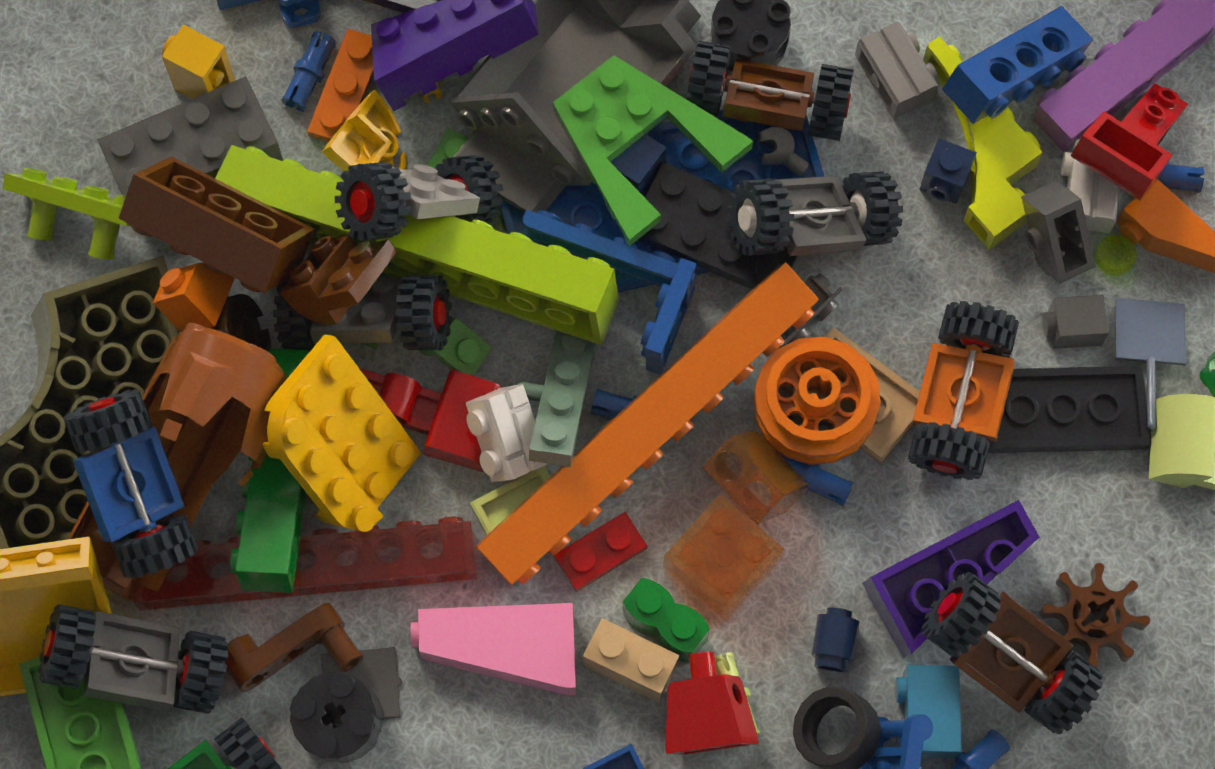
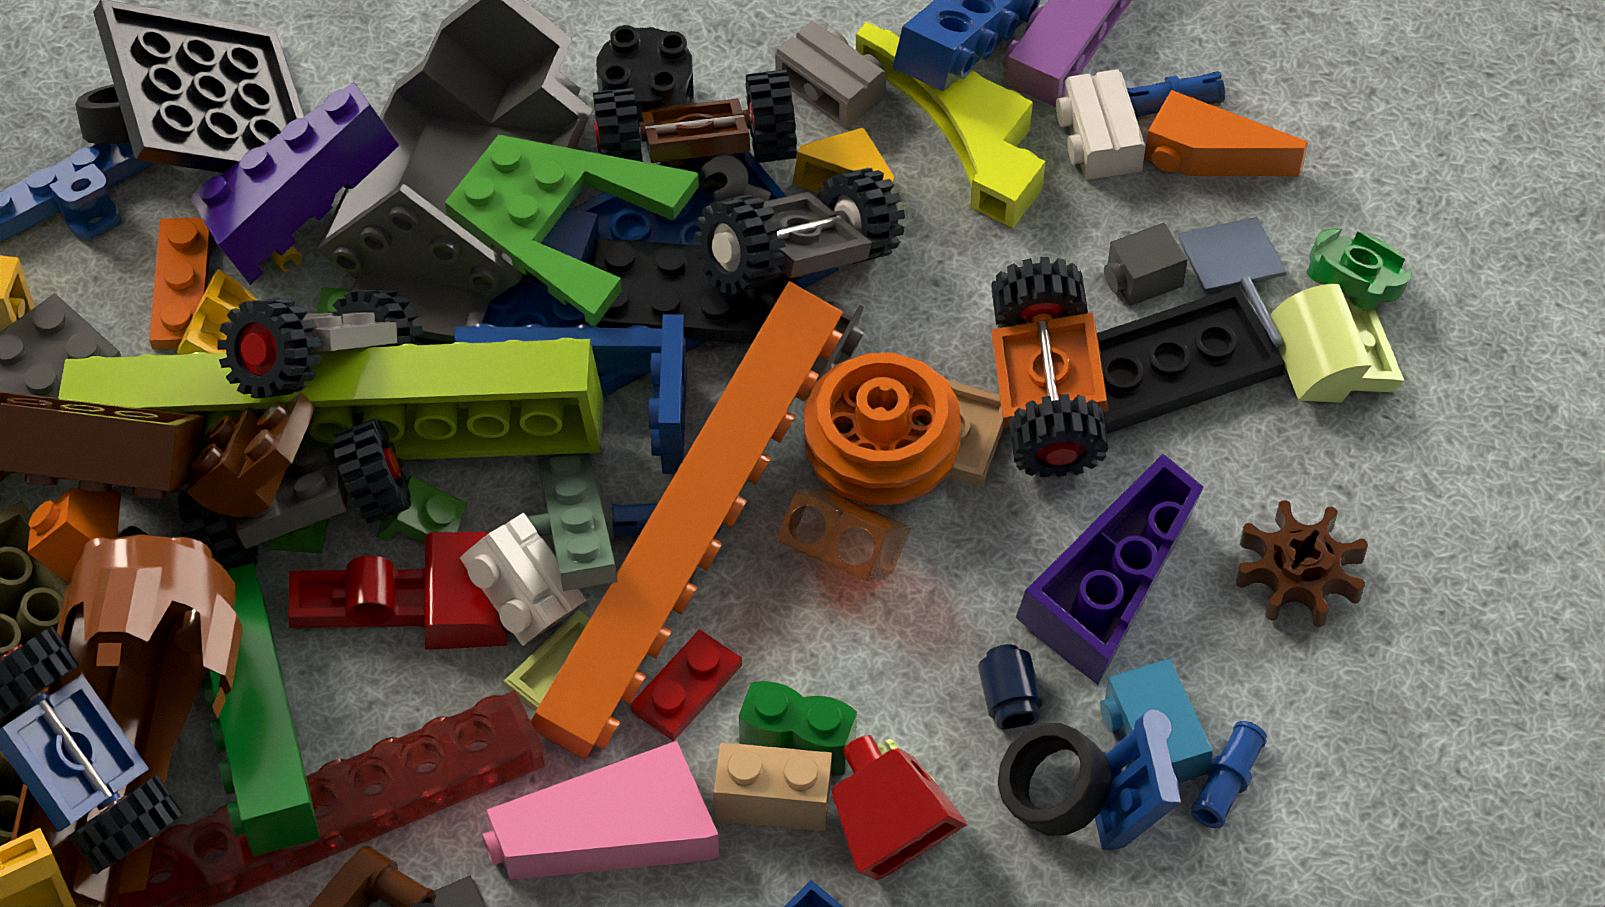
camera: 20 degrees left, 15 degrees down
(308, 71) = (128, 278): blue pin -> none
(338, 437) = (317, 634): yellow plate -> none
(723, 557) = (839, 637): clear orange brick -> none
(822, 481) = (924, 522): blue pin -> none
(875, 153) = (835, 156): none -> yellow slope
(947, 171) = (932, 156): dark blue brick -> none
(1012, 653) = (1227, 617): plate -> none
(1058, 231) = (1086, 172): dark grey brick -> none
(1115, 255) = (1158, 190): clear neon green tile -> none
(1130, 149) = (1130, 61): red plate -> none

